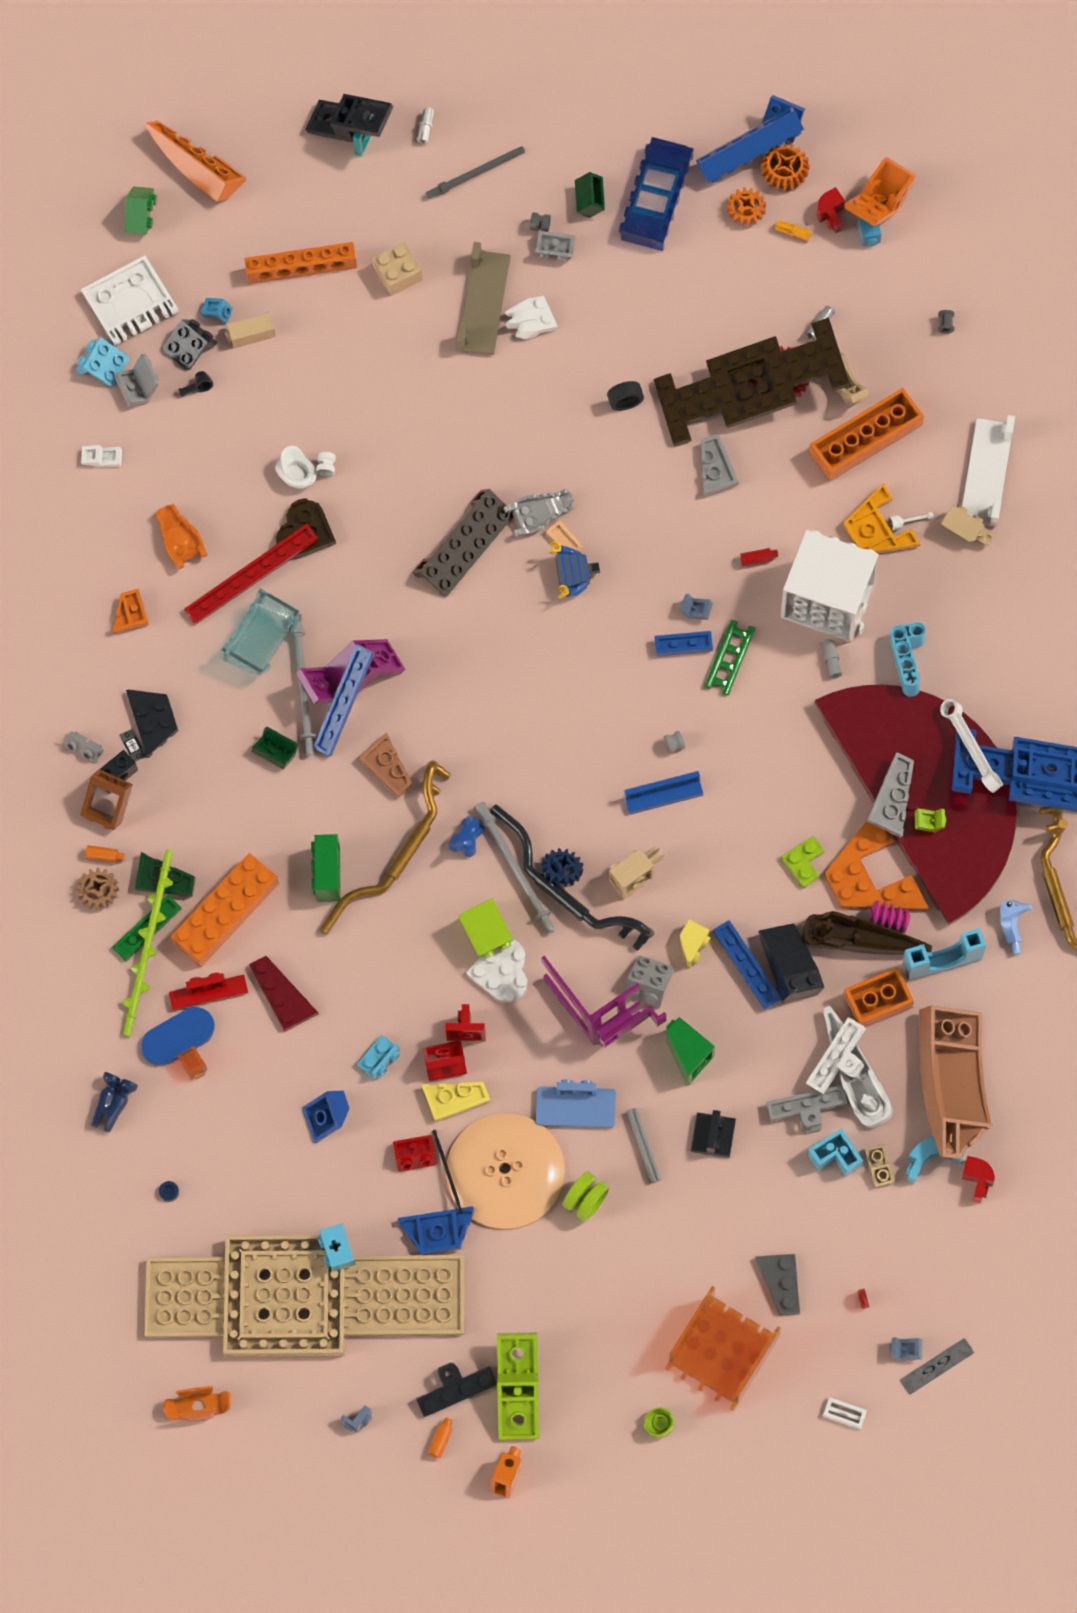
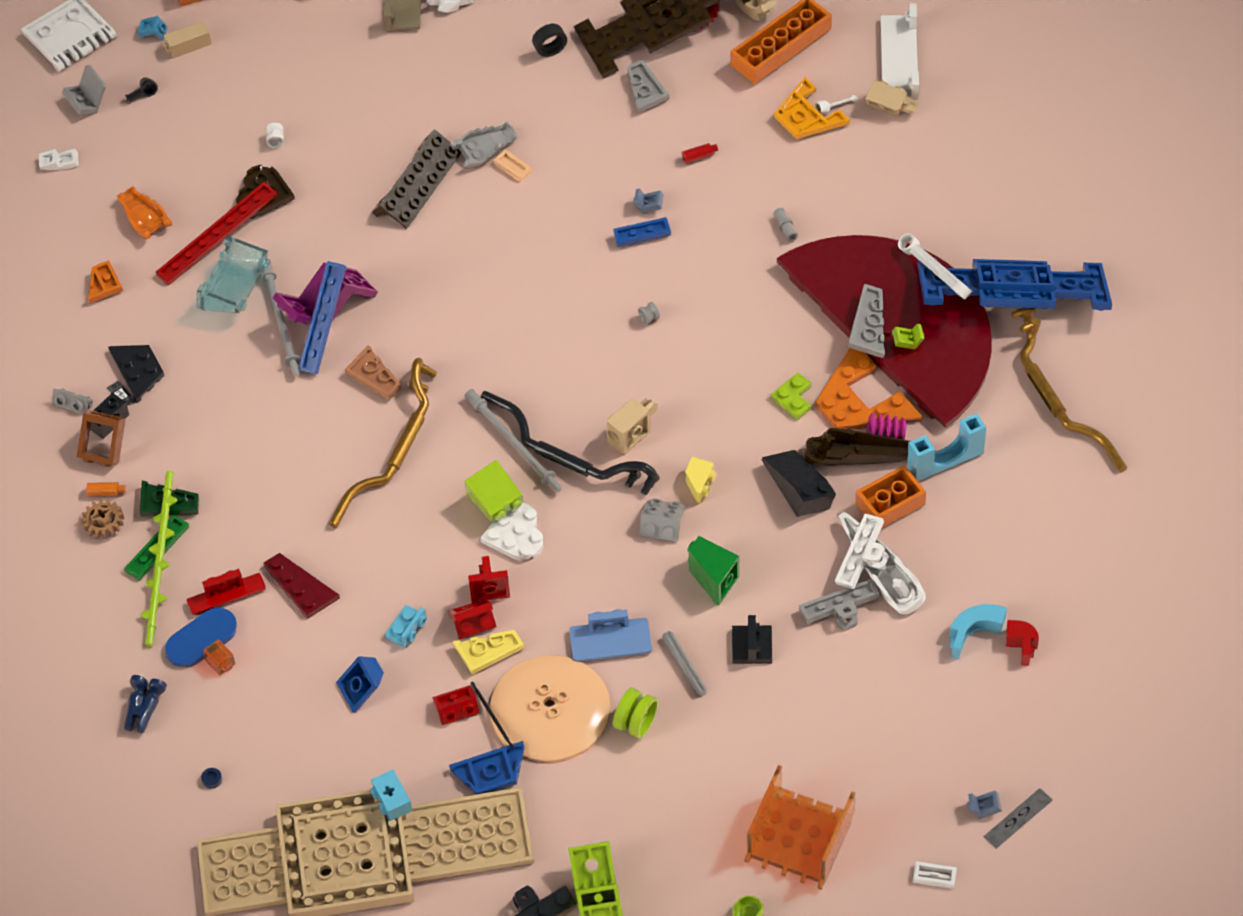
camera: 10 degrees left, 15 degrees down
(102, 361) = (49, 82): medium azure bracket -> none
(188, 343) = (128, 57): bracket -> none
(225, 909) = (232, 518): orange brick -> none
(275, 748) = (262, 373): dark green bracket -> none
(295, 468) = (246, 141): white piece -> none
(326, 867) = (327, 464): green brick -> none
(466, 837) = (461, 421): blue animal -> none
(571, 870) = (559, 432): dark blue gear -> none
(572, 570) = (524, 185): torso -> none
(615, 1026) = (623, 562): magenta piece -> none
(663, 792) = (646, 358): blue fence -> none
(733, 668) = (682, 229): green bar -> none
(747, 965) = (756, 491): blue plate -> none
(781, 1279) = (846, 763): dark grey wing -> none
(829, 585) = (772, 157): white piece -> none
(838, 1149) = (877, 634): medium azure brick -> none
(863, 1298) = (931, 765): clear red tile -> none
(879, 1165) = (921, 645): tan slope -> none
(902, 640) = (851, 203): medium azure beam -> none
(953, 1078) = (977, 553): nougat slope -> none
(1009, 914) = (1002, 408): light blue animal -> none

